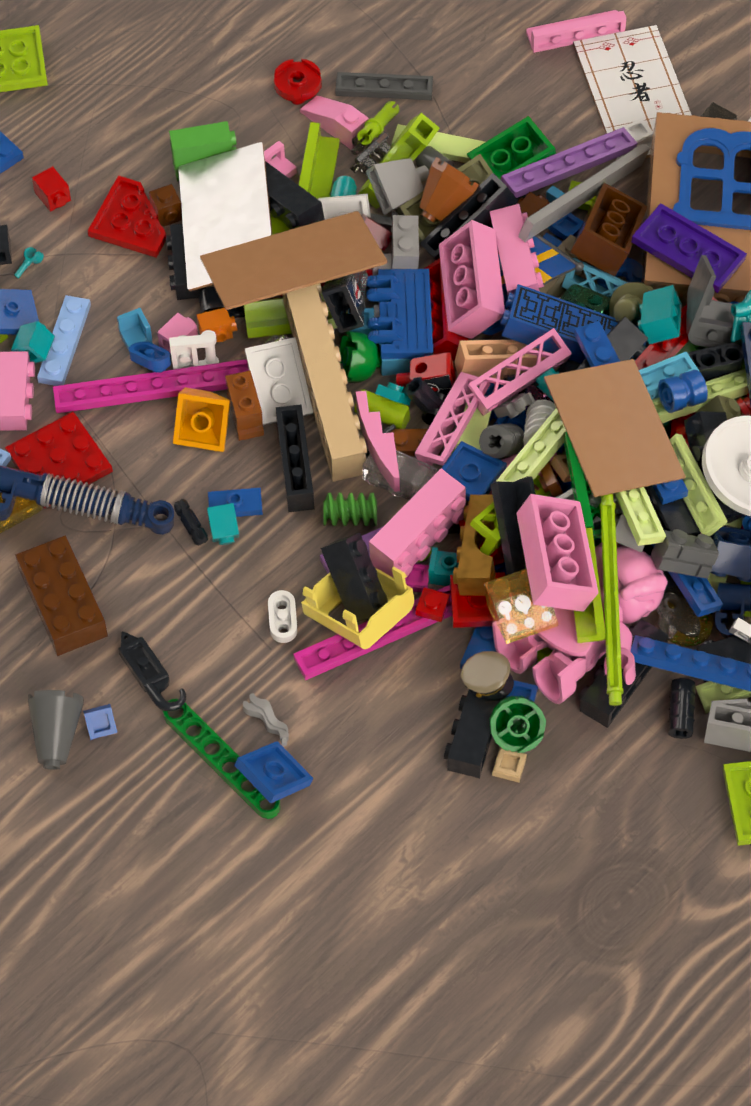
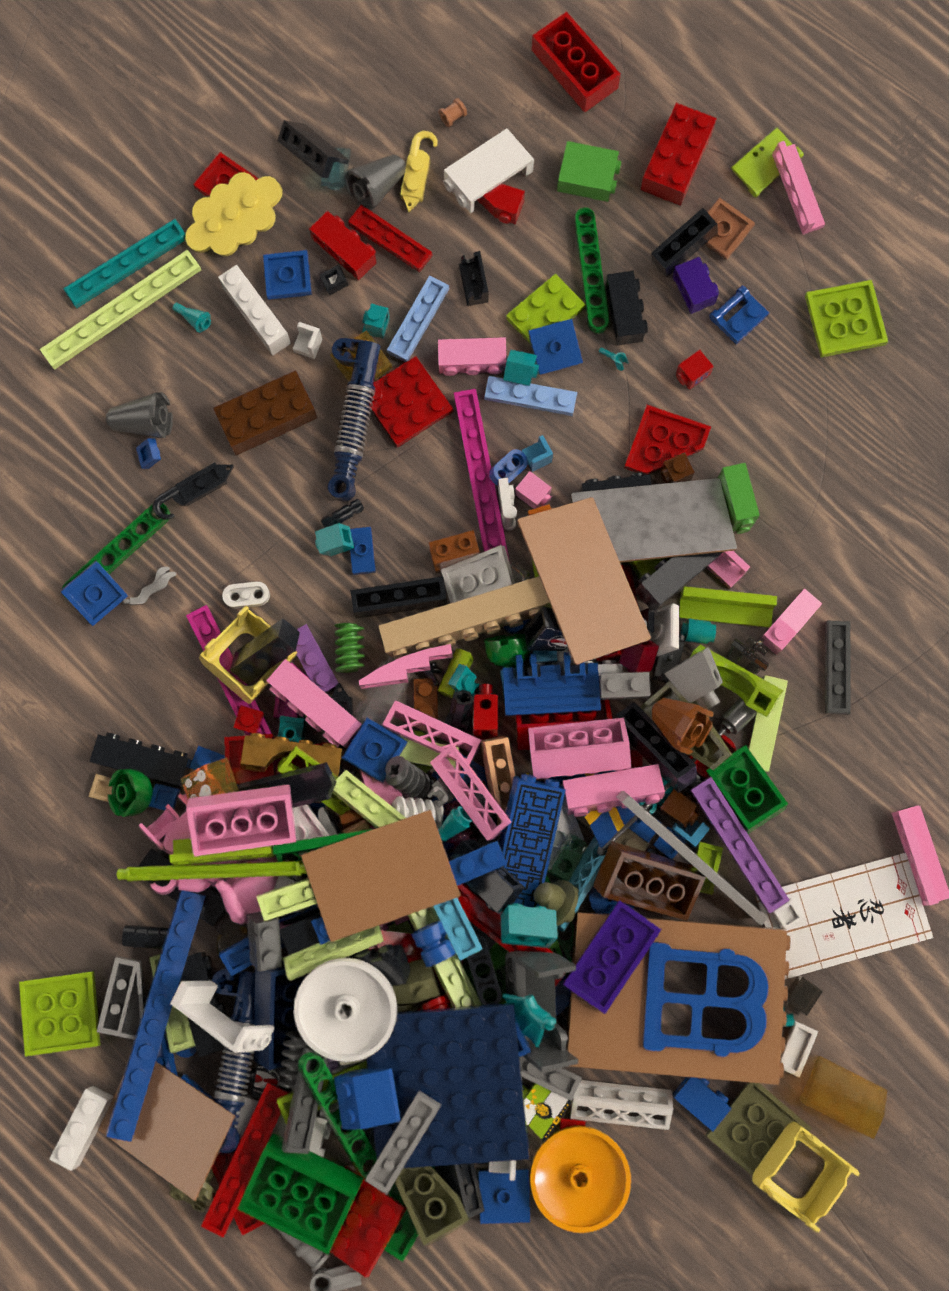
camera: 90 degrees right, 20 degrees up
(201, 419) = (444, 515): light orange slope -> none
(297, 91) = (834, 571): red plate -> none
(375, 126) = (773, 656): lime pin -> none
(488, 675) = (167, 765): dark tan piece -> none

